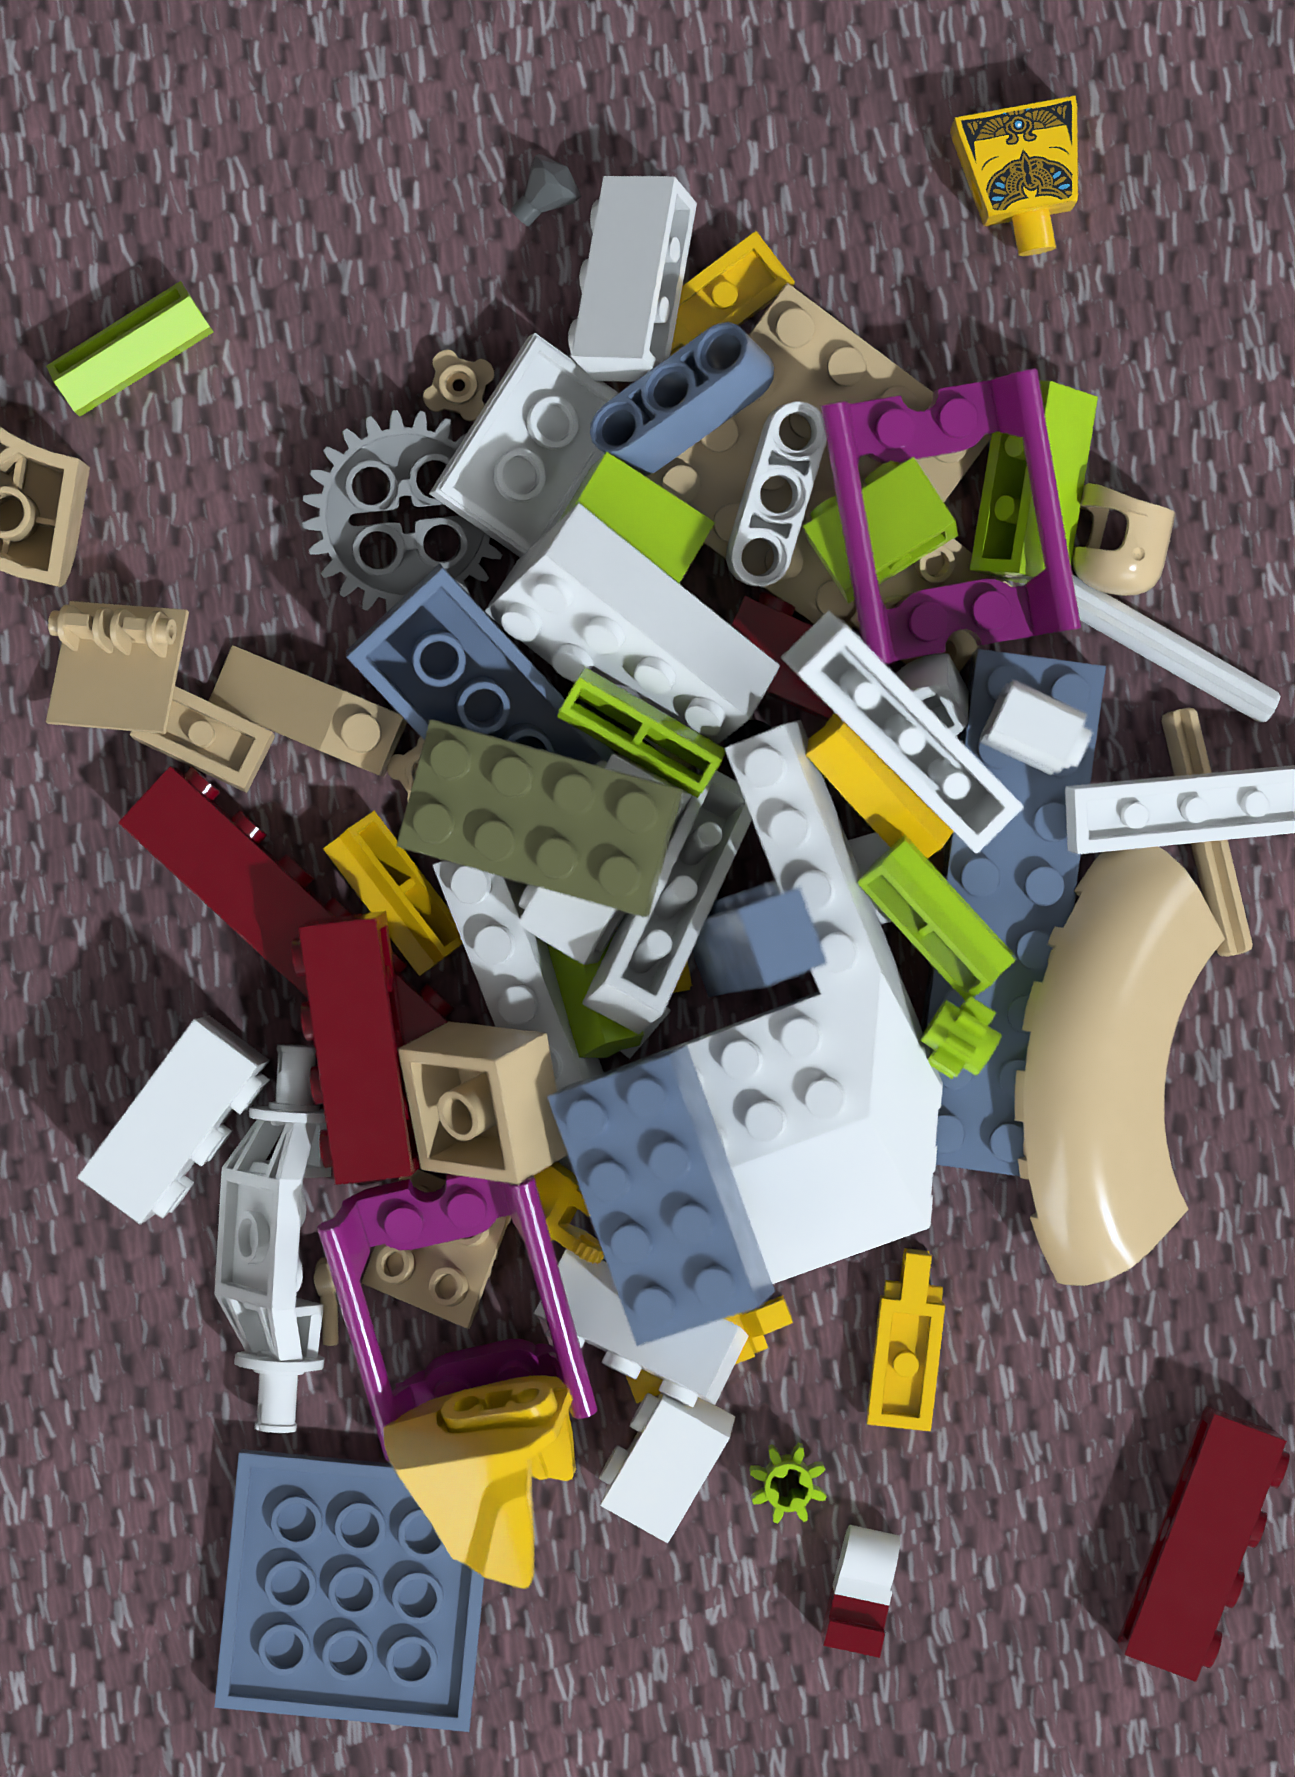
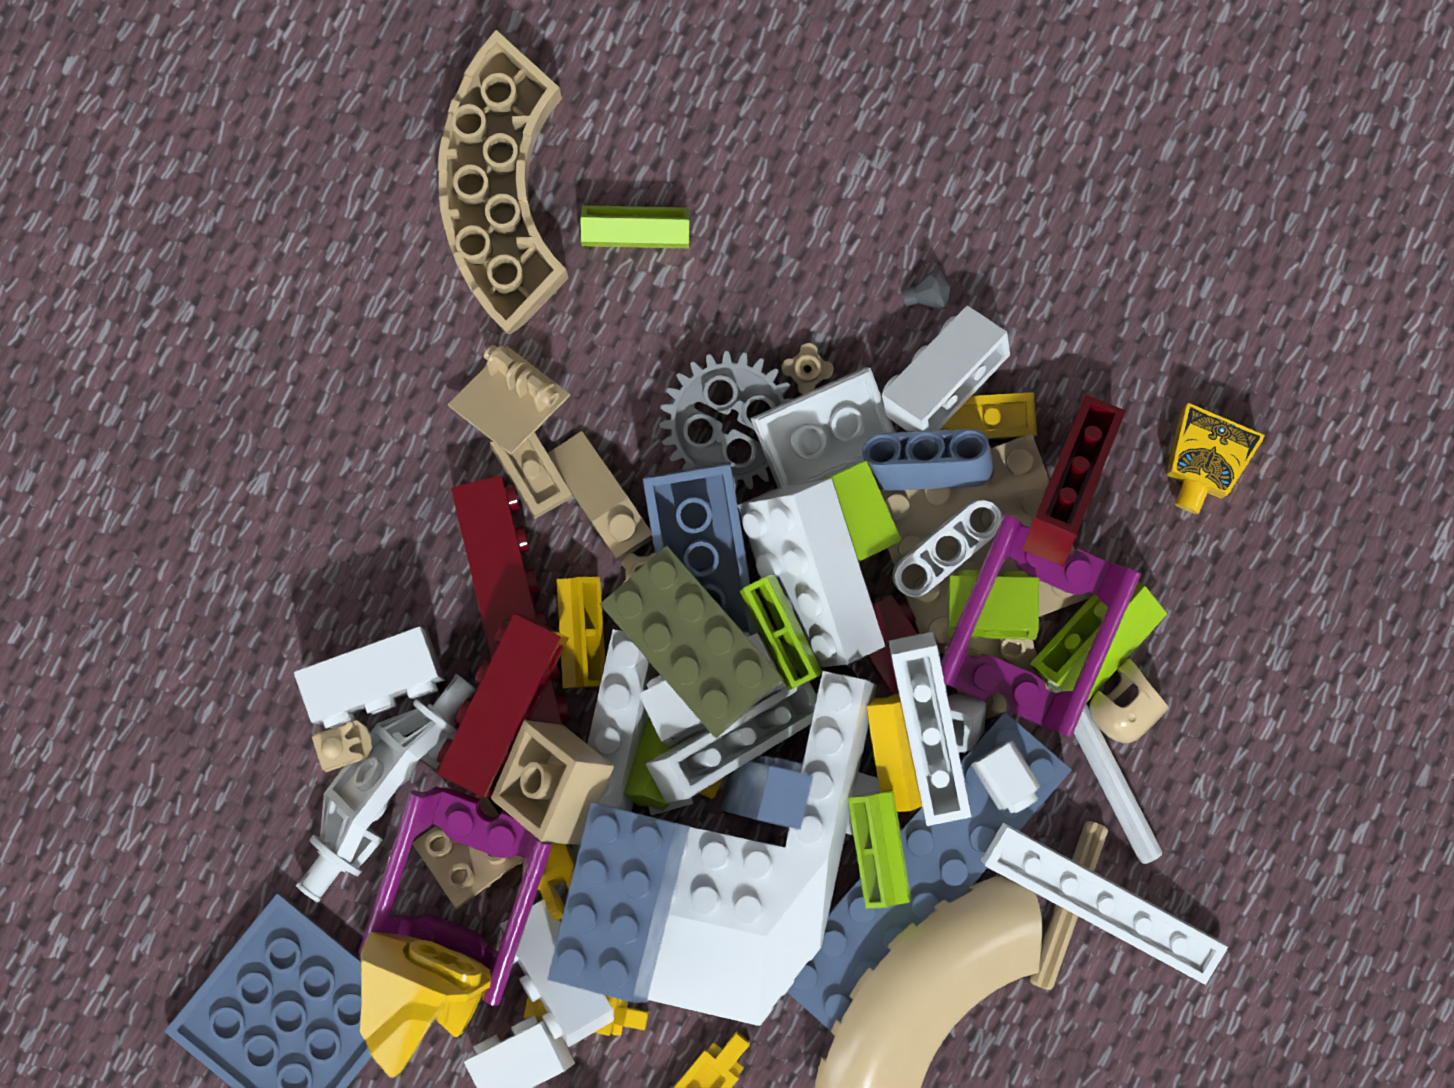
camera: 35 degrees right, 5 degrees down
(198, 1223) = (343, 745): none -> tan piece
(327, 1293) = (389, 834): tan hand -> none
(879, 307) = (1074, 480): none -> dark red brick
(961, 1037) = (849, 926): lime gear -> none

